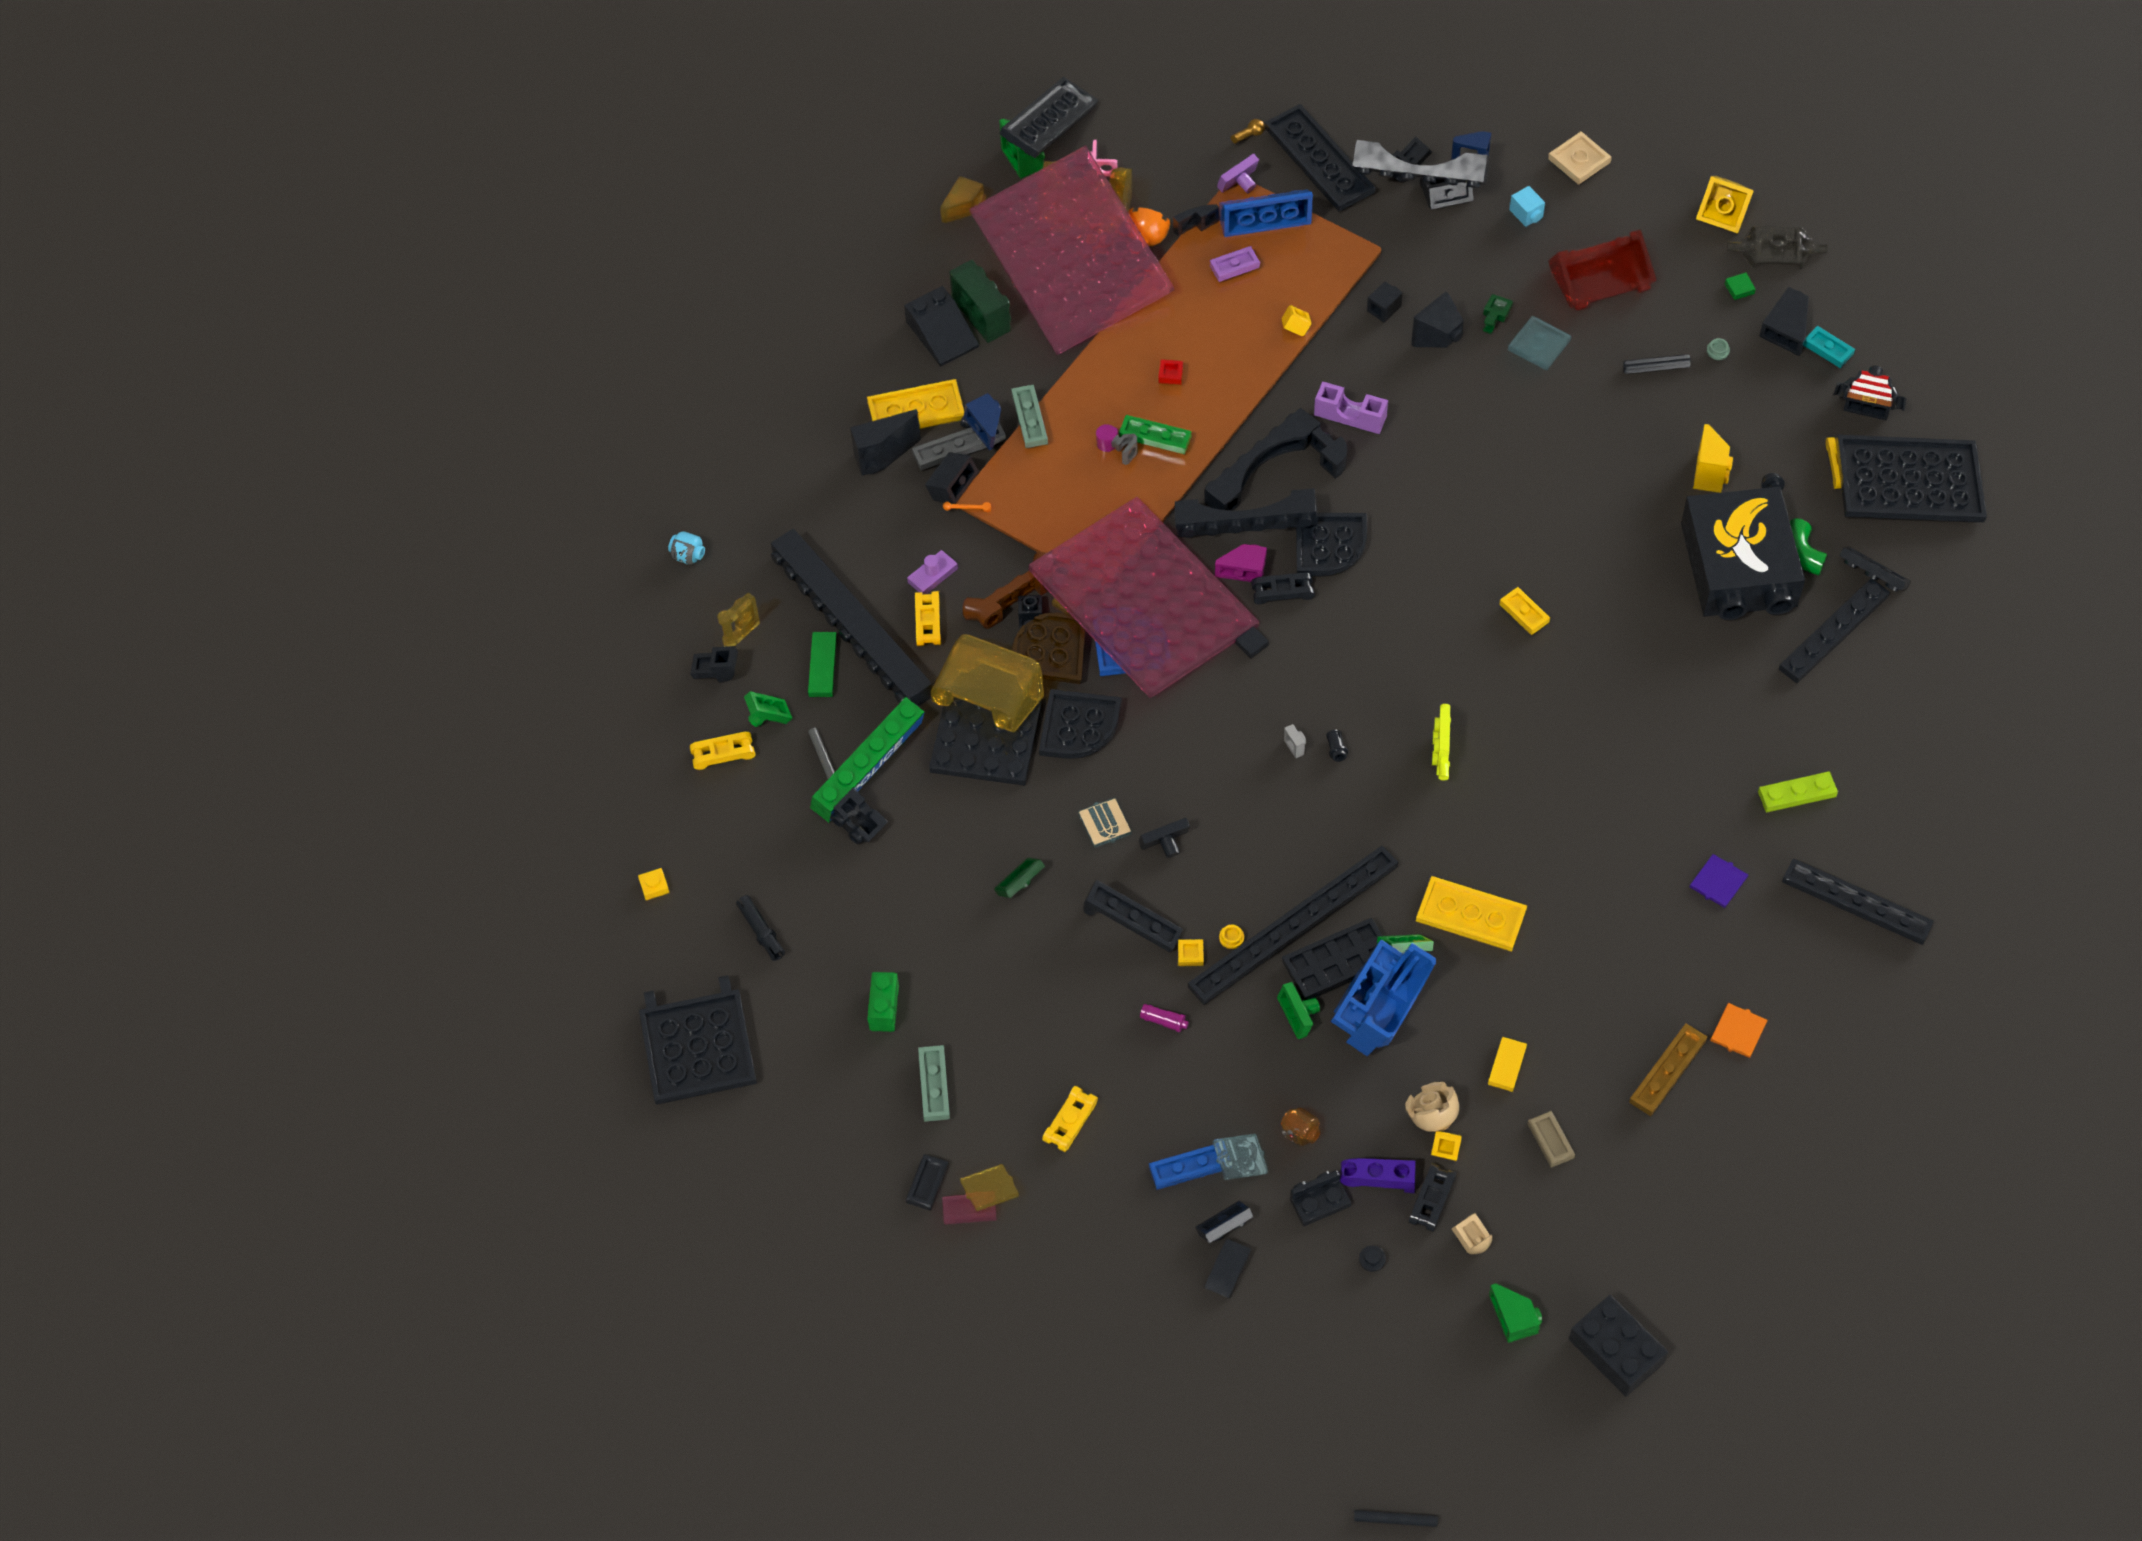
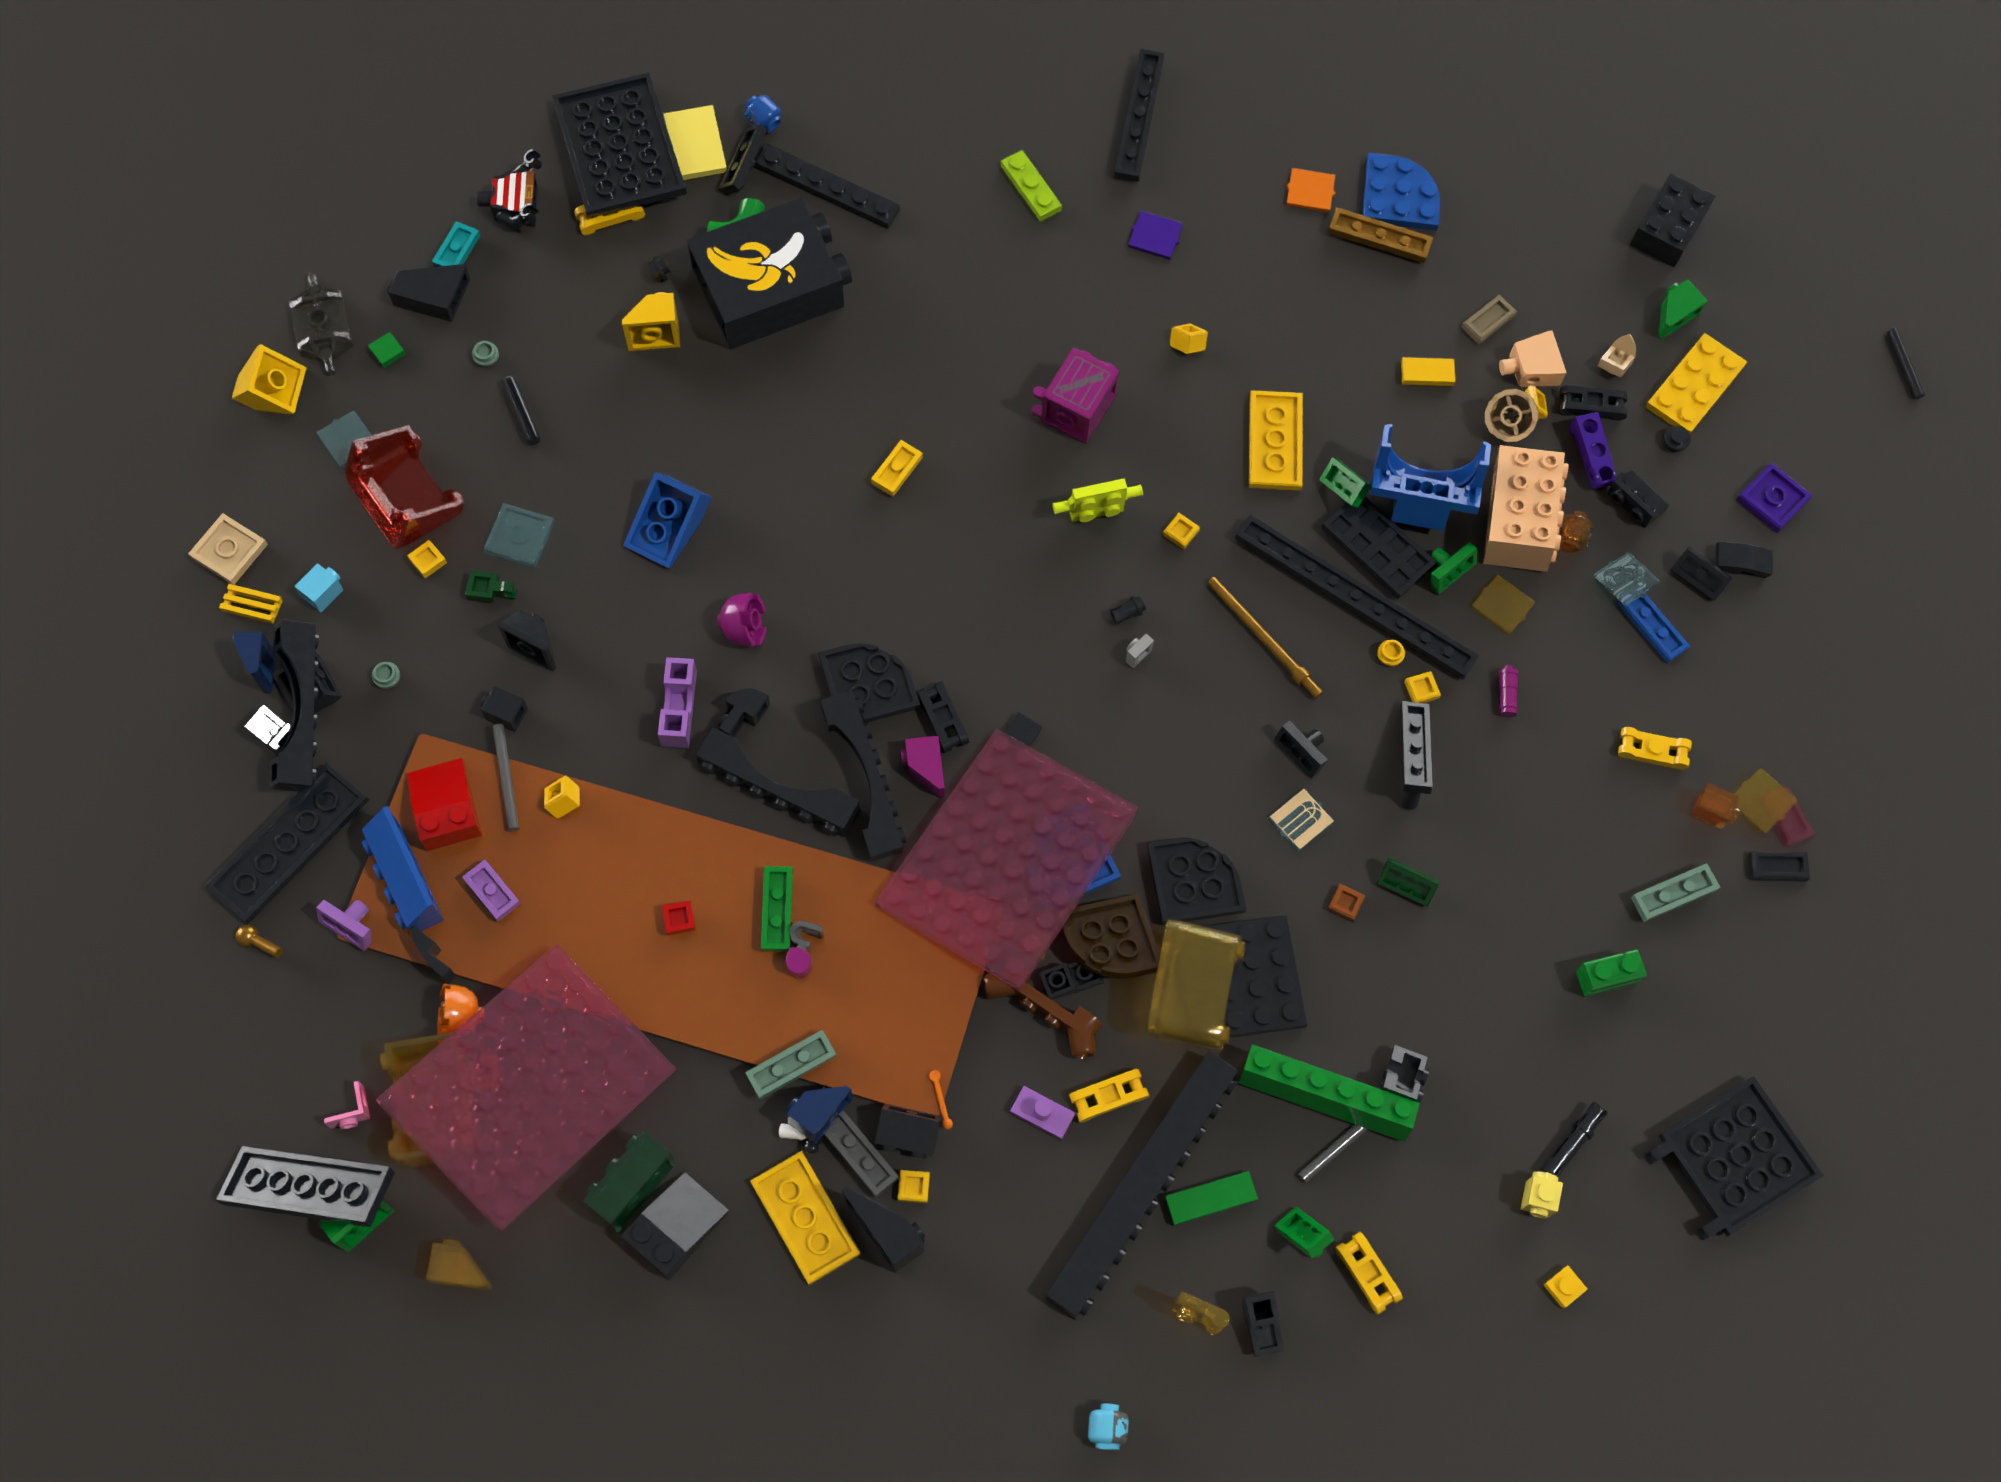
camera: 115 degrees left, 10 degrees up
(727, 884) = (1542, 1195): none -> light yellow brick
(910, 478) = (913, 1186): none -> yellow tile
(997, 1144) = (1716, 806): none -> clear orange brick
(1020, 831) = (1346, 902): none -> dark orange tile
(1234, 859) = (1299, 674): none -> pearl gold bar
(1250, 1047) = (1503, 604): none -> clear yellow piece
(1285, 1327) = (1774, 497): none -> dark purple tile
(1315, 246) = (443, 805): none -> red slope
(1325, 291) = (505, 777): none -> dark grey bar
(1331, 1078) = (1525, 508): none -> light nougat brick
(1401, 811) = (1181, 531): none -> yellow tile
(1409, 467) = (742, 619): none -> magenta cylinder
(1428, 1303) = (1696, 384): none -> yellow plate
(1440, 236) = (385, 675): none -> sand green plate
(1490, 1157) = (1535, 361): none -> light nougat torso
(1524, 439) = (666, 519): none -> blue slope
(1533, 277) = (427, 559): none -> yellow plate
(1535, 155) = (229, 598): none -> yellow tile
(1552, 755) = (1078, 395): none -> magenta container
(1596, 872) = (1188, 338): none -> yellow slope
(1665, 248) = (340, 434): none -> clear light blue piece
(1715, 1106) = (1400, 193): none -> blue plate
(1905, 540) = (696, 142): none -> light yellow tile
(1922, 593) = (762, 111): none -> blue head

